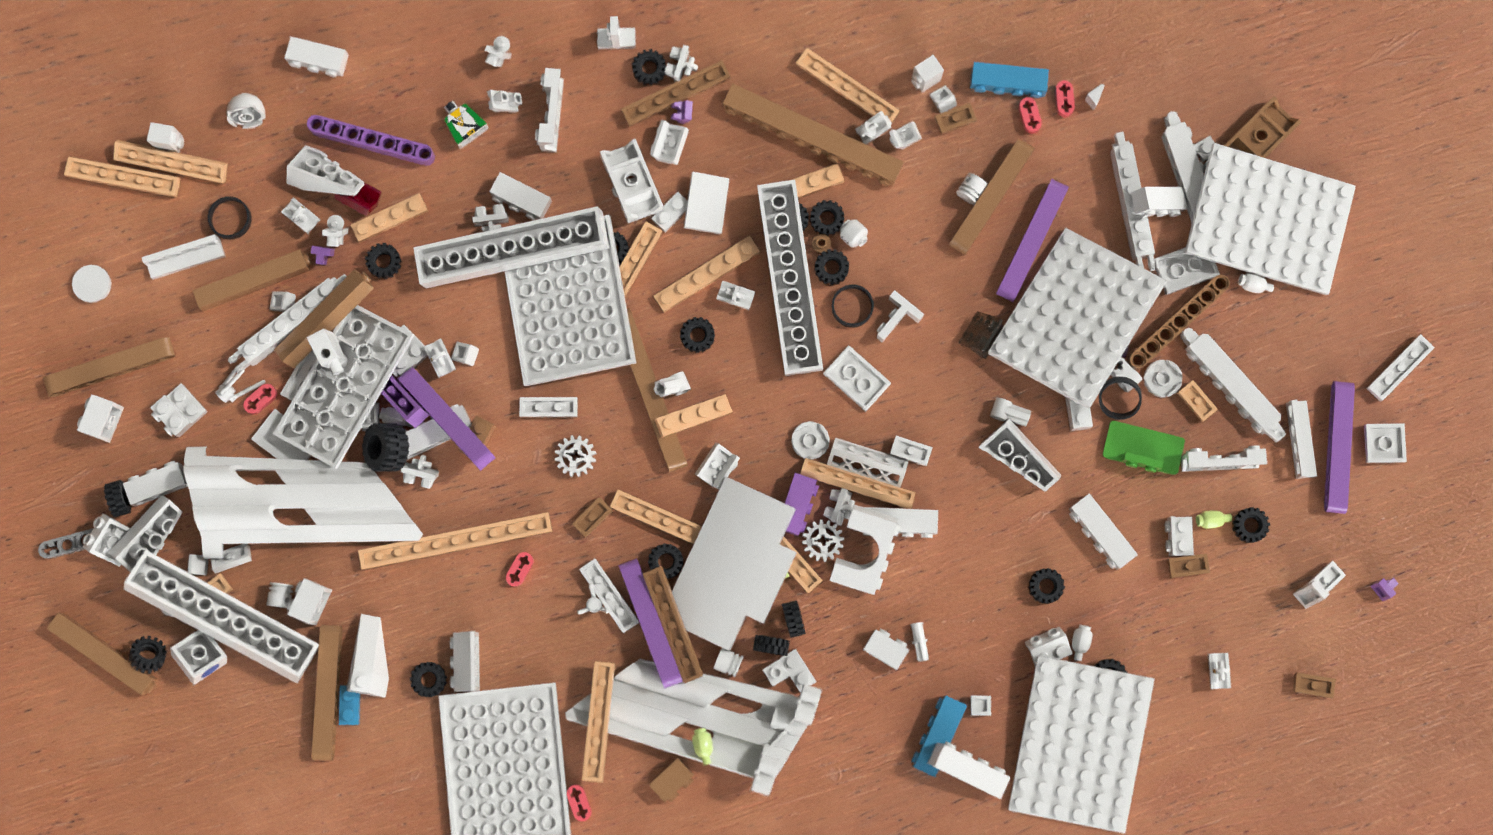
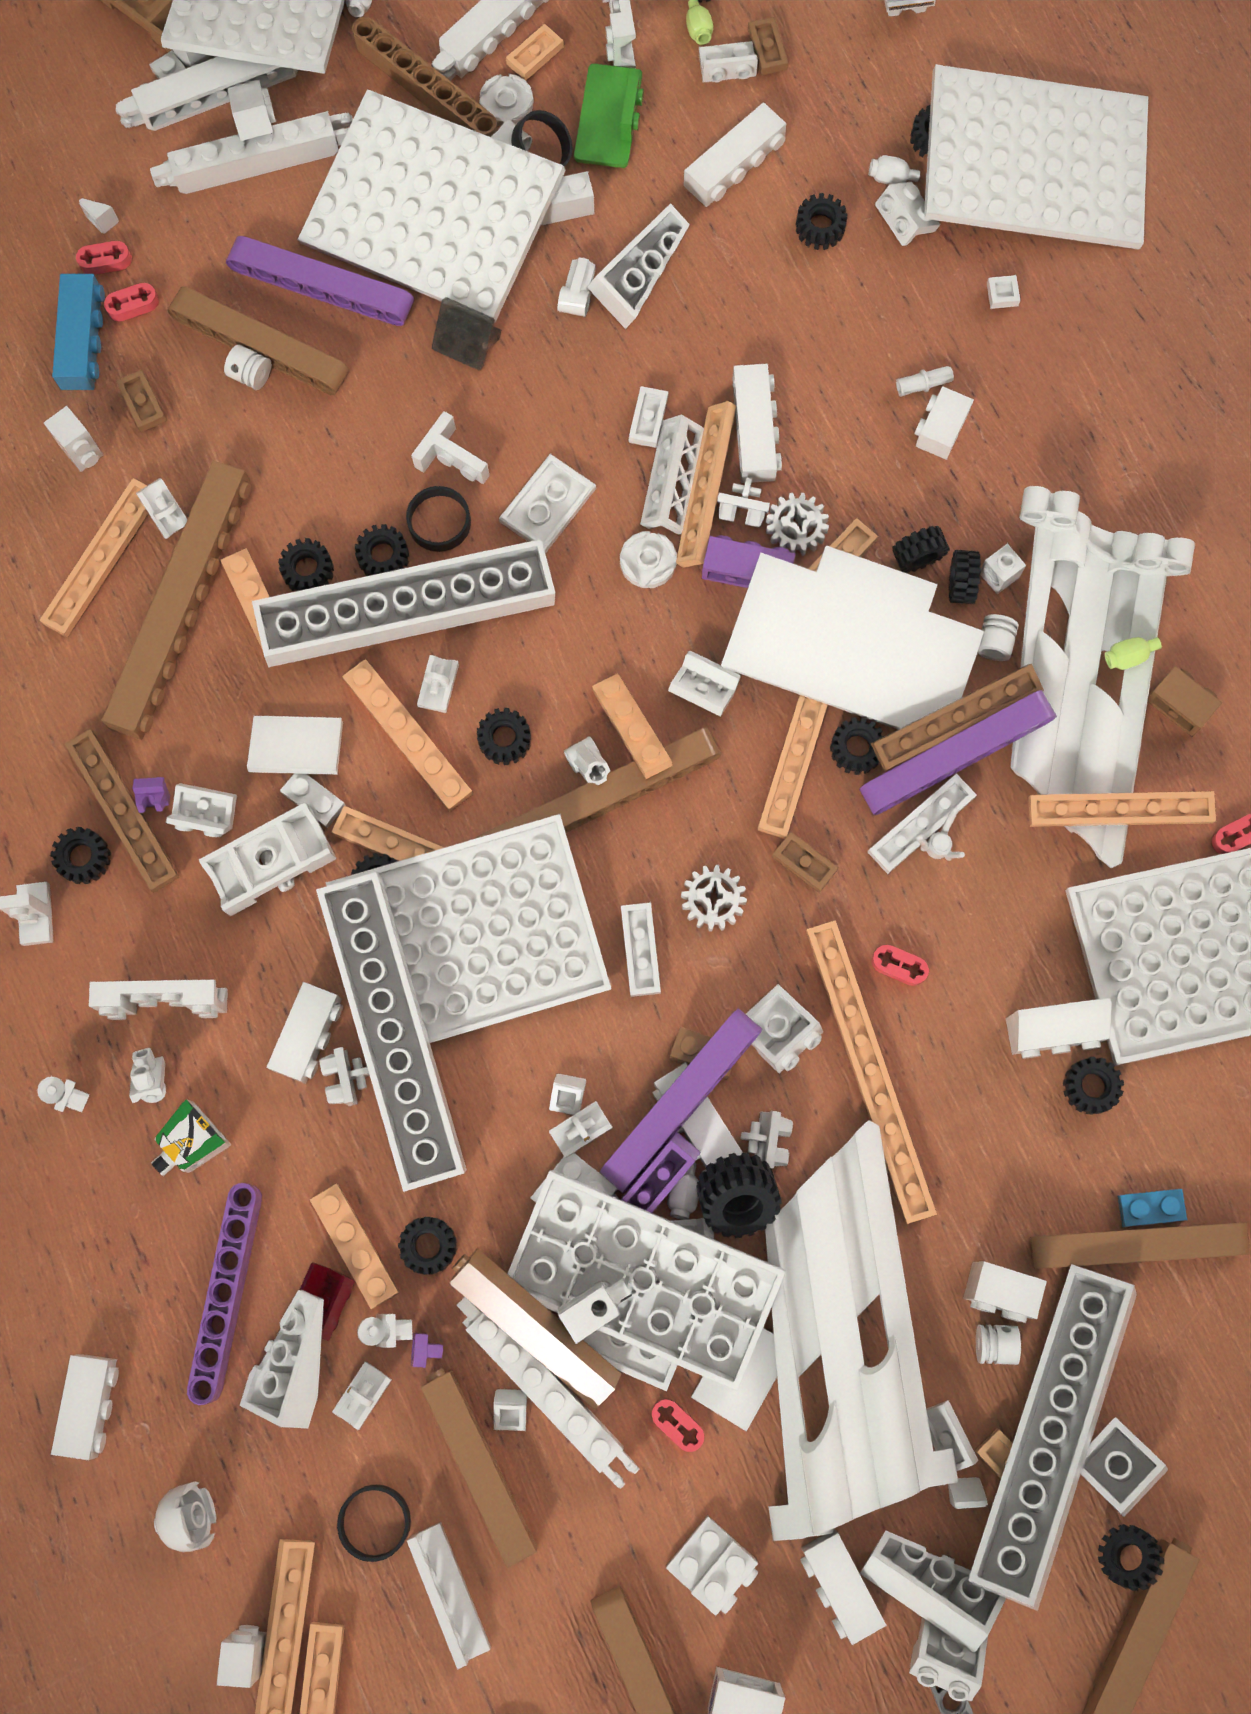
camera: 95 degrees left, 5 degrees down
(117, 498) = (878, 1651): black tyre -> none
(226, 391) = (672, 1484): white plant -> none
(369, 663) = (1084, 1183): white wedge -> none
(487, 487) = (786, 1029): none -> white plate
(676, 71) = (84, 811): white hips -> none
(797, 669) = (994, 538): white plate -> none
(820, 249) = (343, 563): medium nougat plate -> none
(853, 233) = (327, 525): white head -> none
(867, 576) = (840, 452): white arch -> none
(905, 136) = (171, 466): white bracket -> none
(941, 730) = (1056, 340): dark azure brick -> none
(943, 99) = (112, 422): white slope -> none
(969, 770) = (1101, 291): white brick -> none
(1183, 270) = (344, 80): white tile -> none

